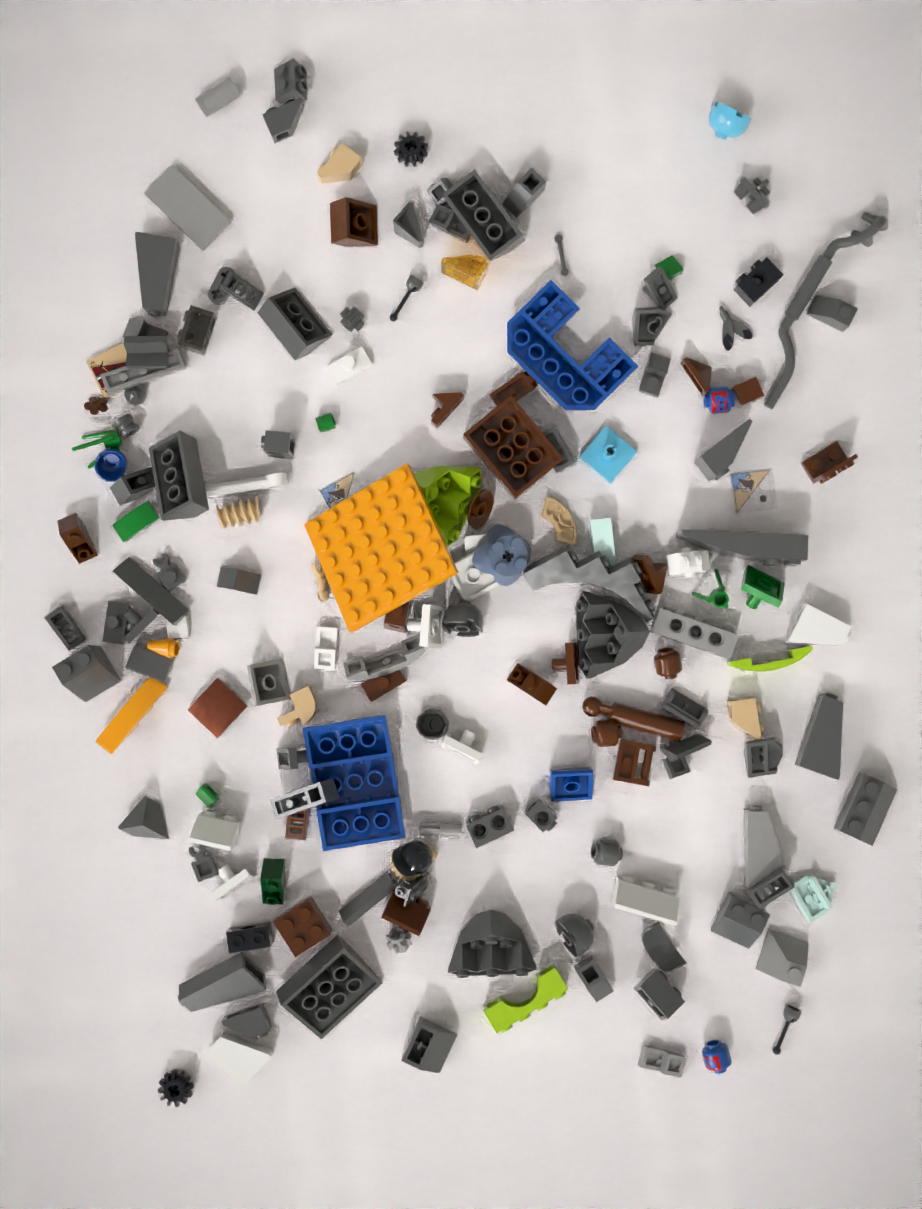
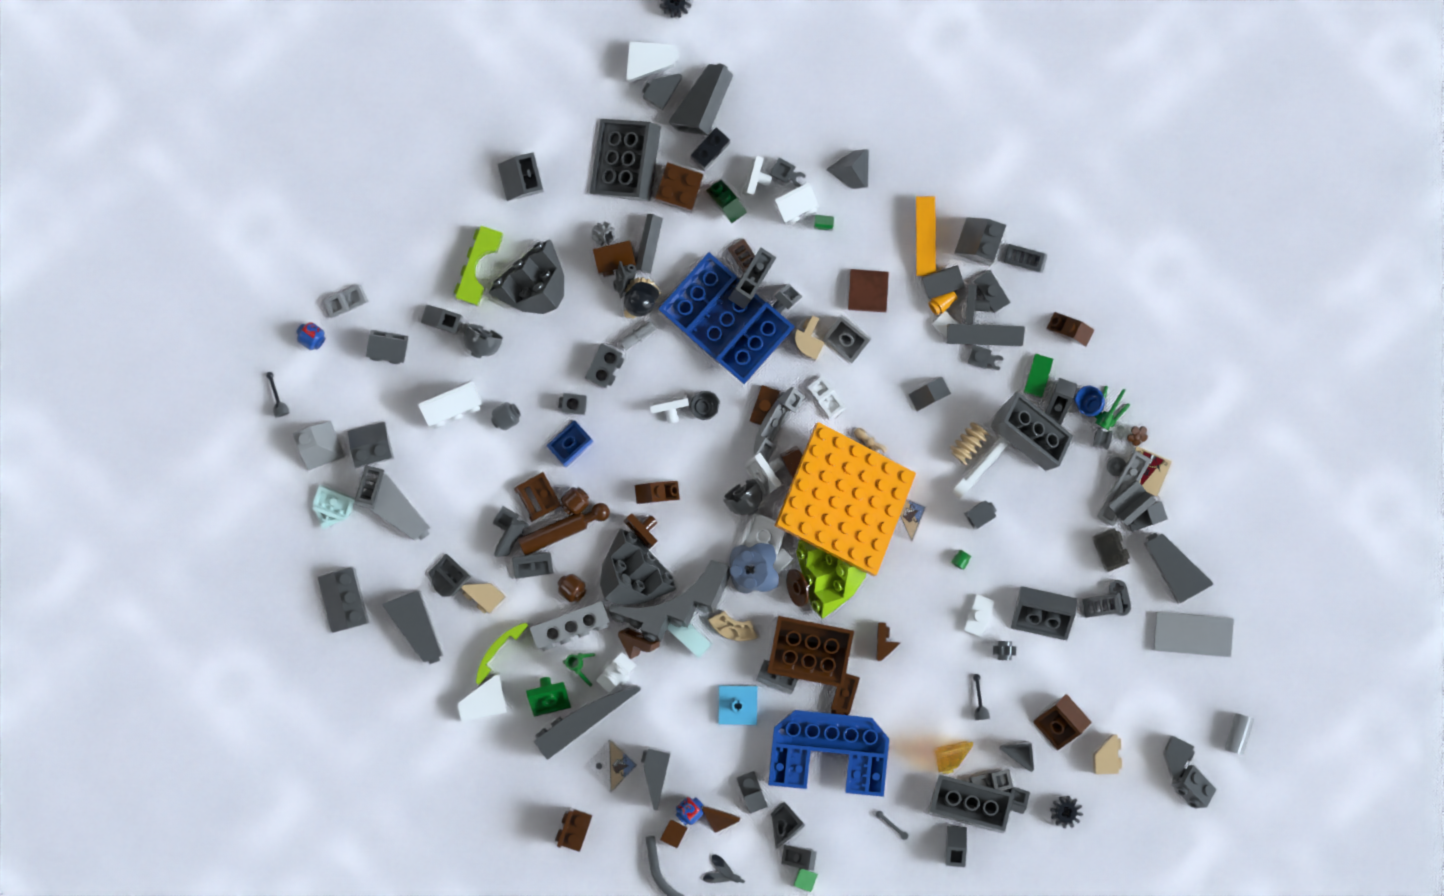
camera: 135 degrees right, 0 degrees up
(661, 949) = (412, 380): dark grey piece -> none

